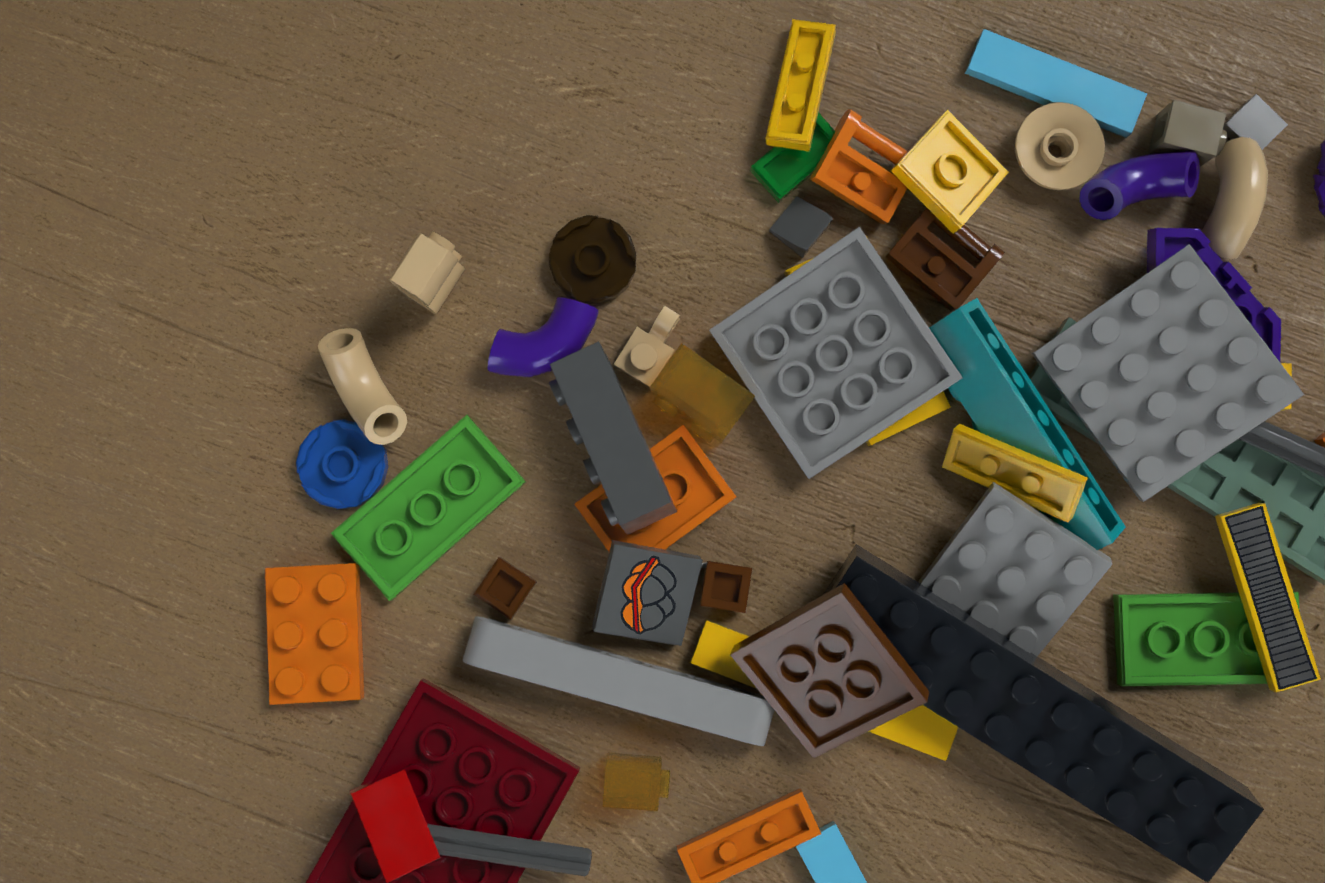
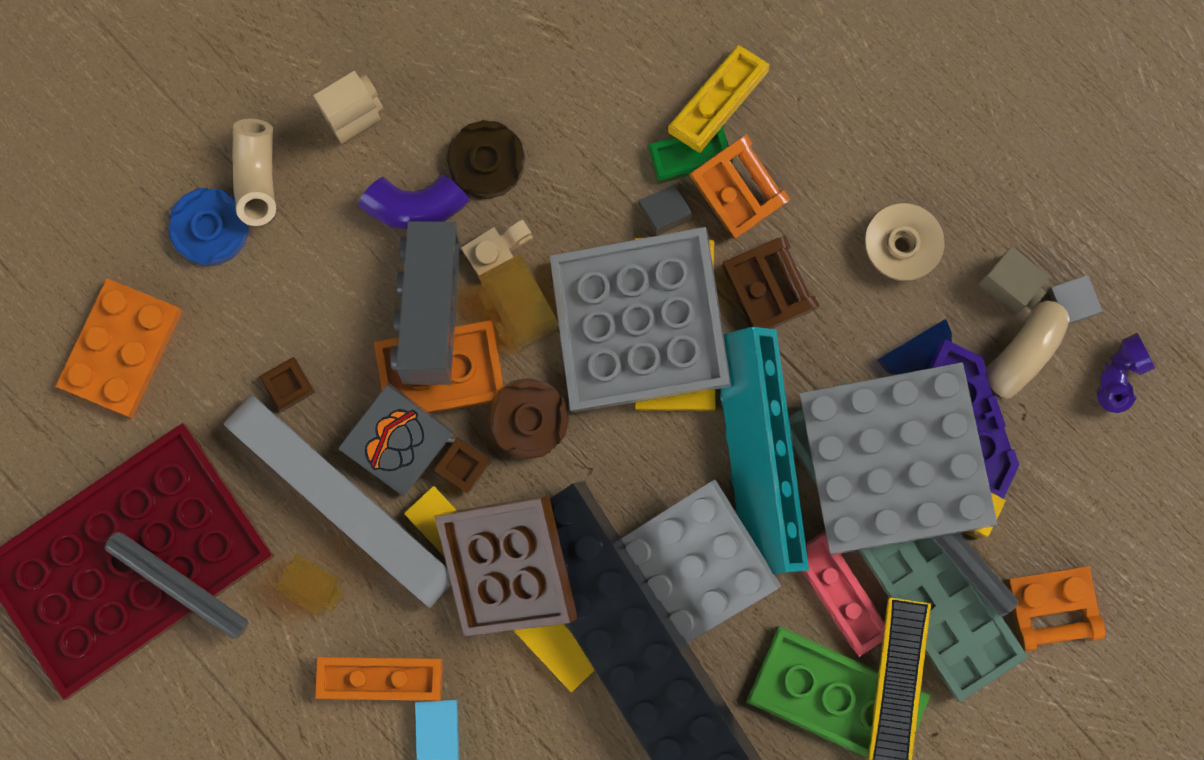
camera: 25 degrees right, 5 degrees down
(395, 825) = (103, 522): red panel -> none
(428, 508) = (259, 292): bright green tile -> none
(768, 507) = (528, 418): none -> reddish brown tile
(949, 171) = (804, 220): yellow tile -> none
(1017, 471) = (741, 484): yellow tile -> none
(1054, 80) = (928, 189): medium azure tile -> none
(1126, 253) = (917, 352): none -> clear blue tile
(1140, 180) = (956, 299): dark purple cylinder -> none
(1167, 535) = (843, 596): none -> coral tile

